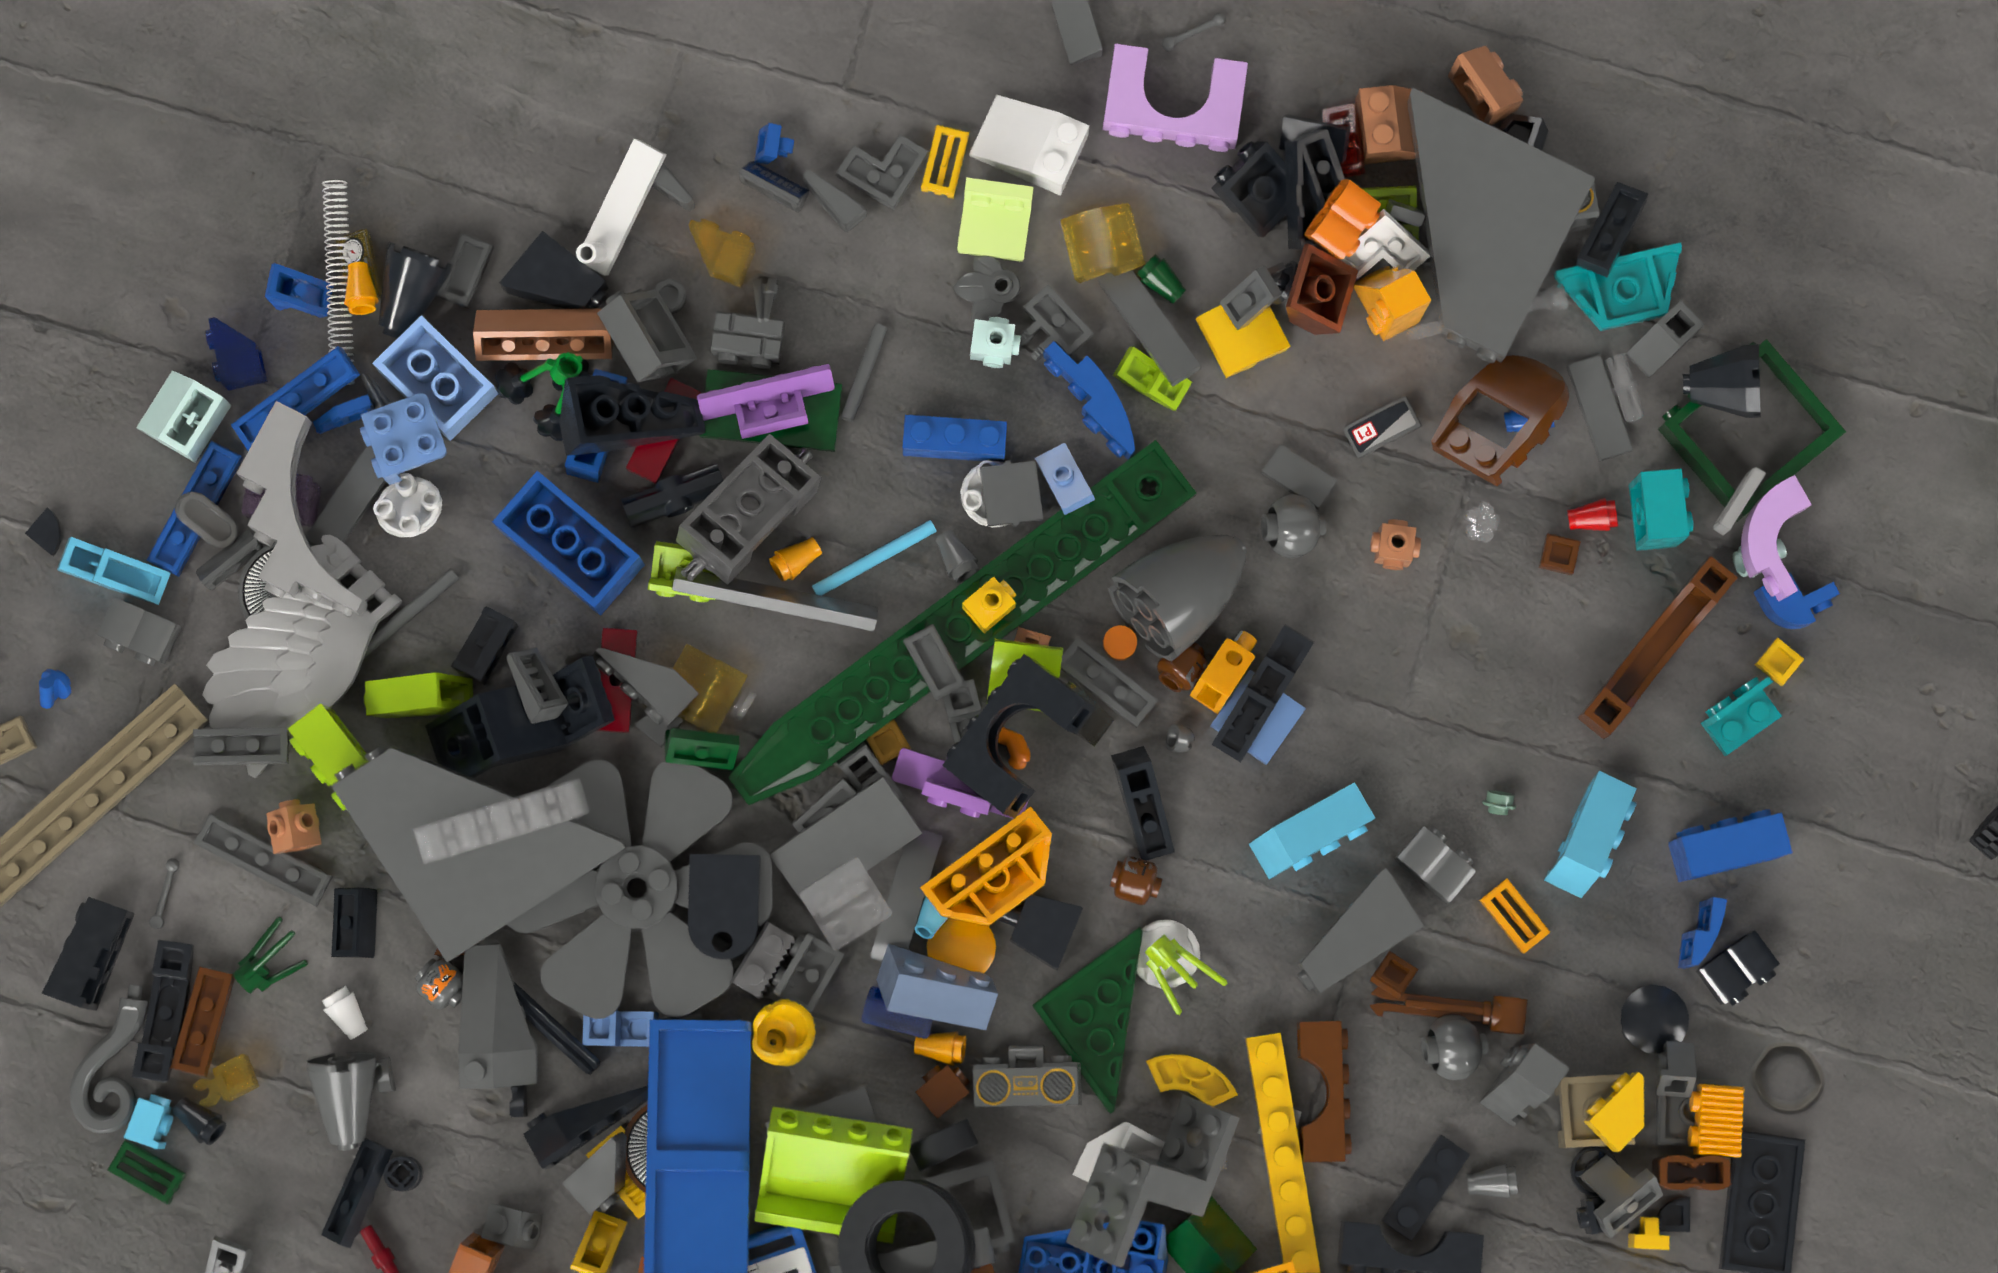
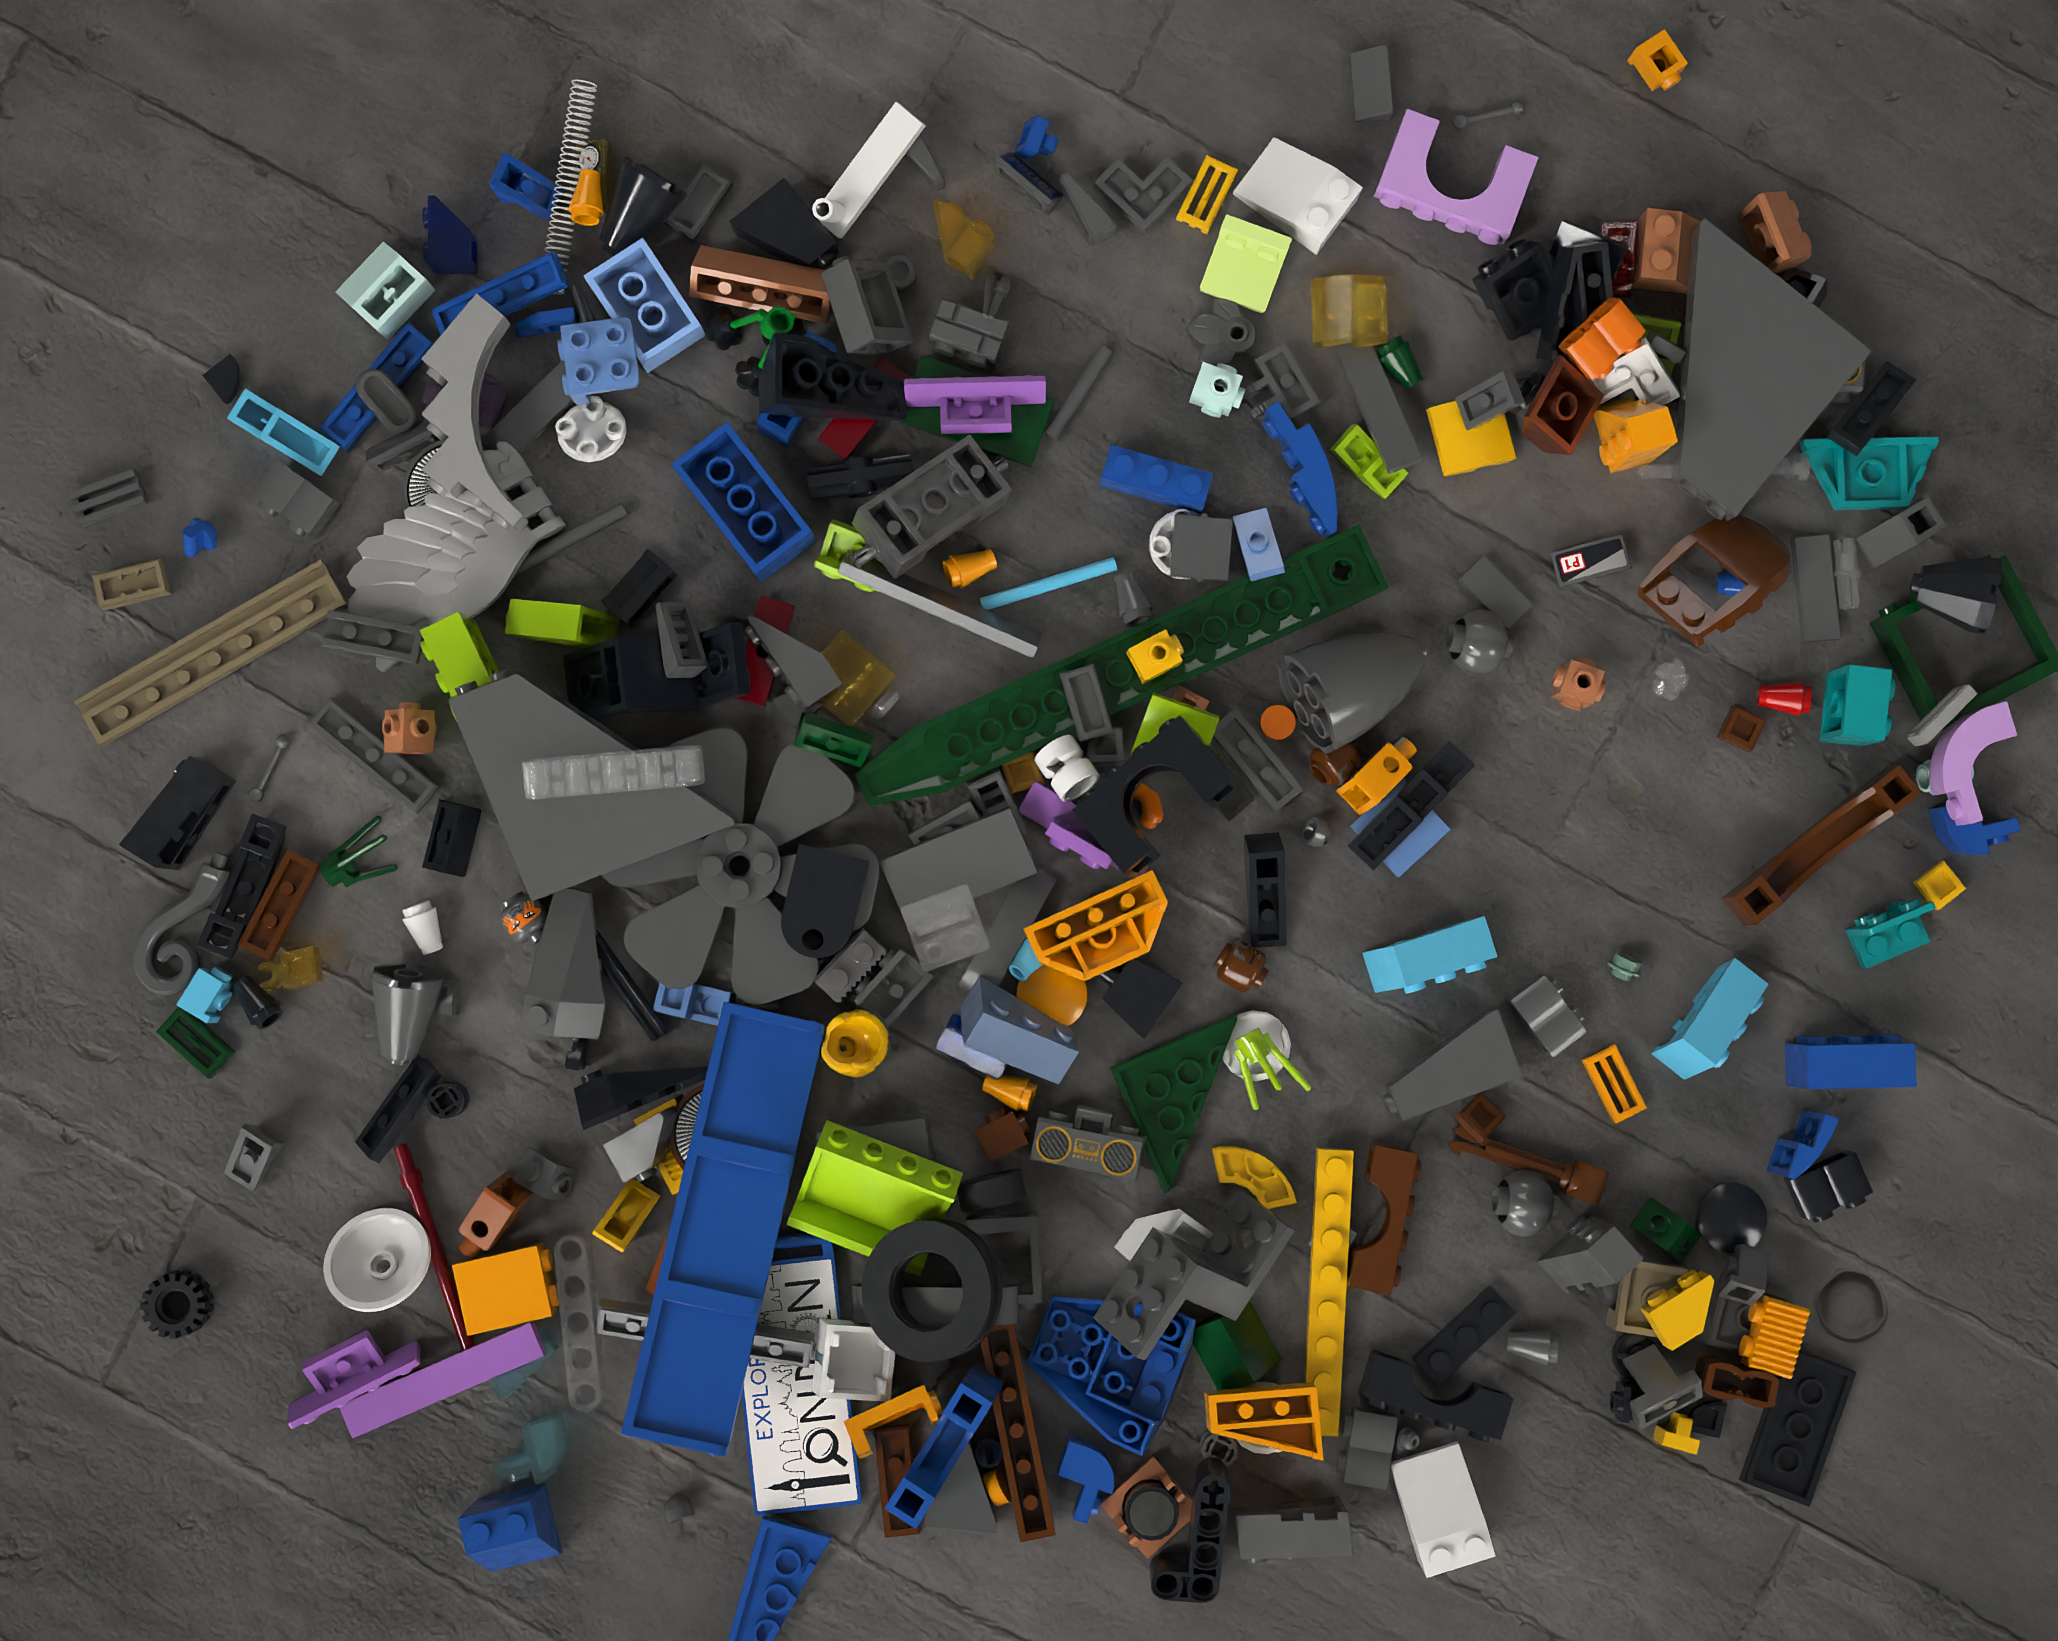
camera: 10 degrees right, 5 degrees up
(925, 724) = (1069, 771): none -> white wheel
(1594, 1043) = (1665, 1229): none -> dark green bracket

